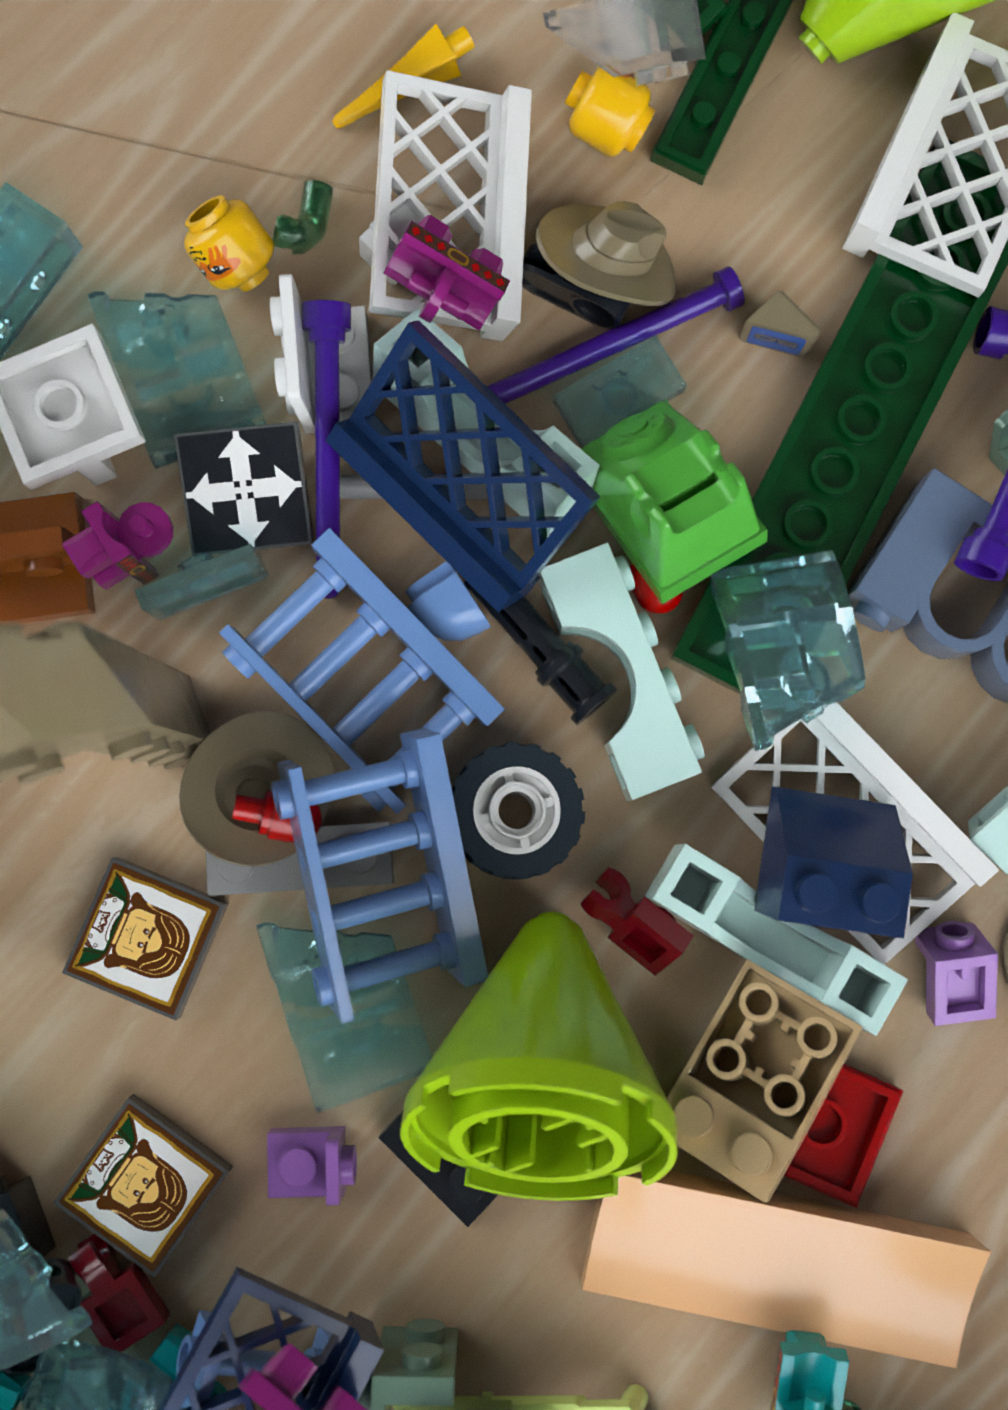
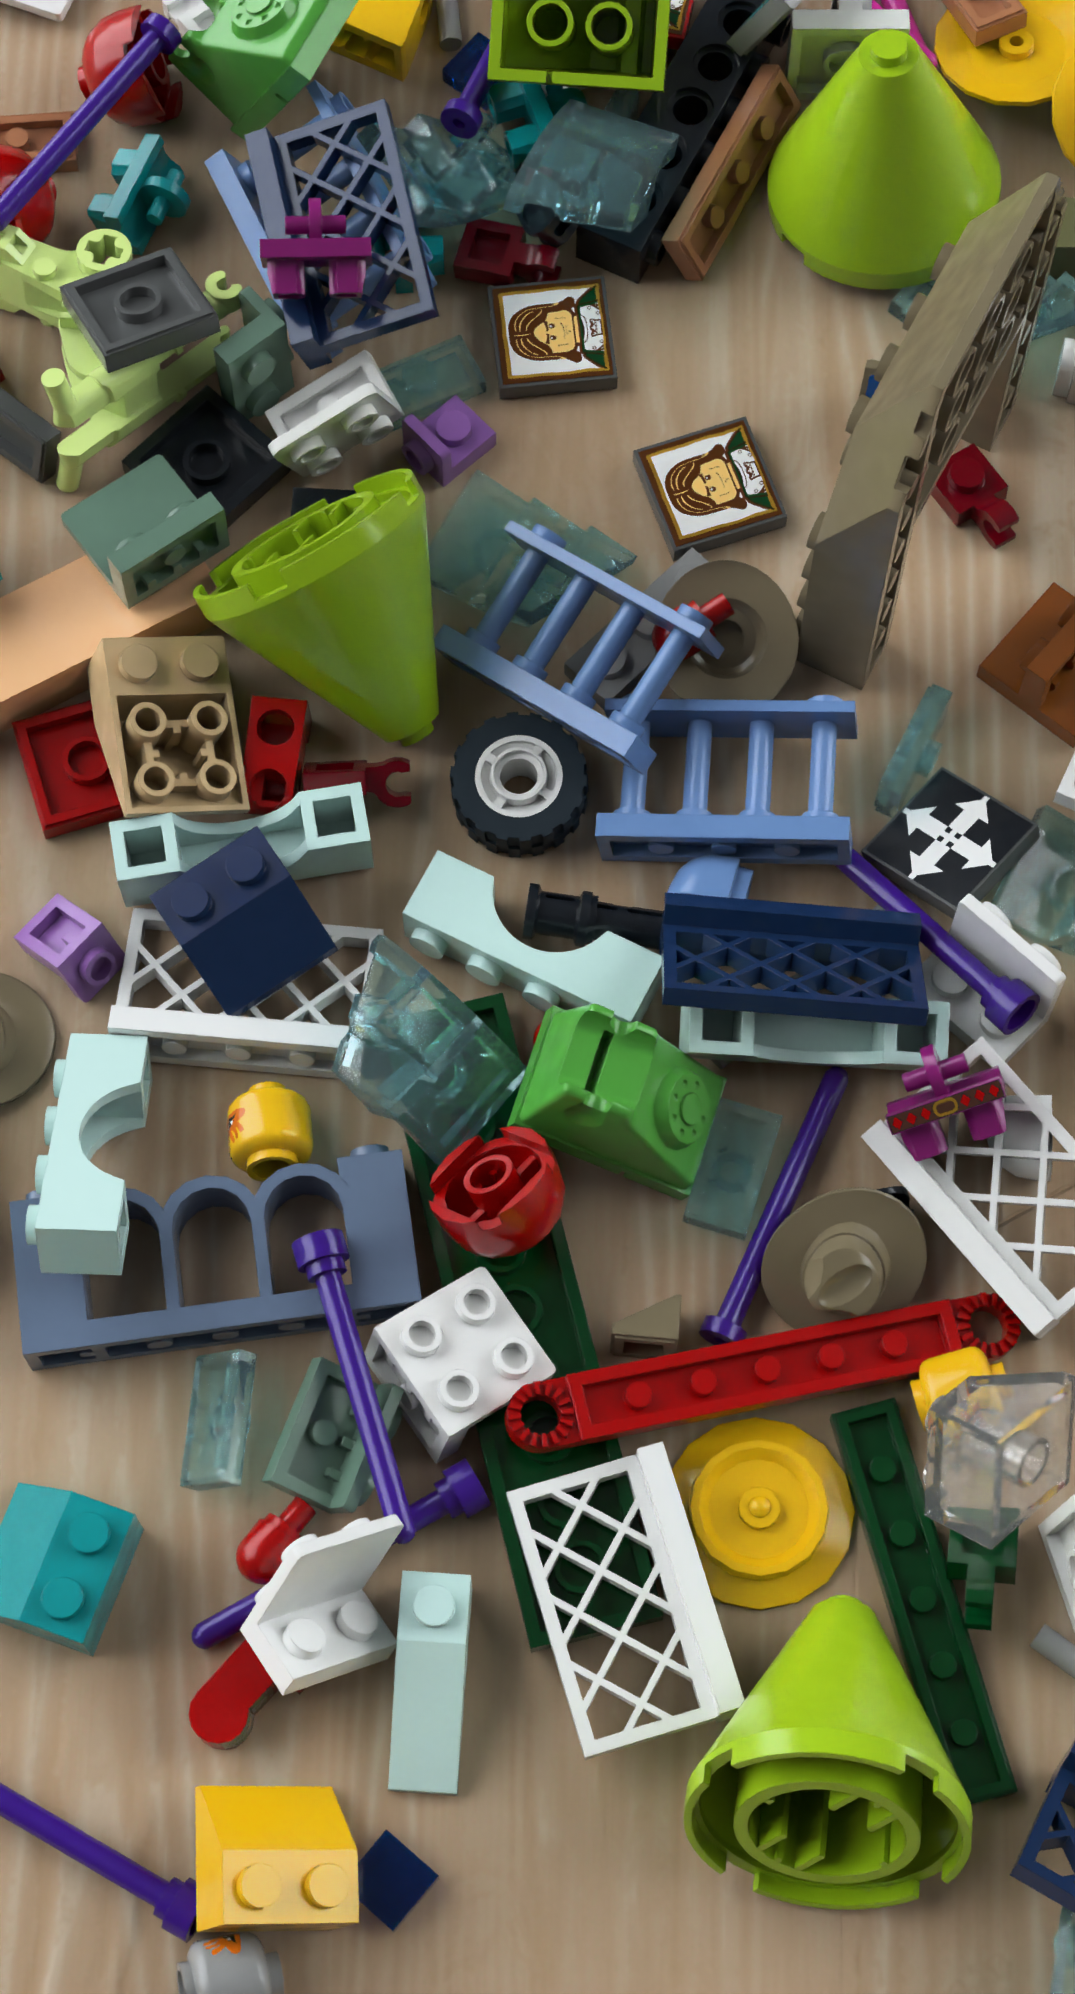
camera: 140 degrees right, 15 degrees down
(115, 546) = (996, 715): magenta hips -> none
(285, 1234) = (433, 377): none -> clear light blue plate
(387, 1263) = (333, 416): none -> white bracket
(518, 1310) = (214, 452): none -> black plate
(630, 1287) = (147, 529): none -> sand green bracket
(680, 996) = (275, 751): none -> red leg
(746, 233) = (755, 1372): none -> red plate
(801, 164) = (764, 1511): none -> yellow piece
(830, 483) = (499, 1193): none -> red cylinder
(928, 696) = (269, 1129): none -> yellow head
(934, 410) = (456, 1359): none -> white bracket

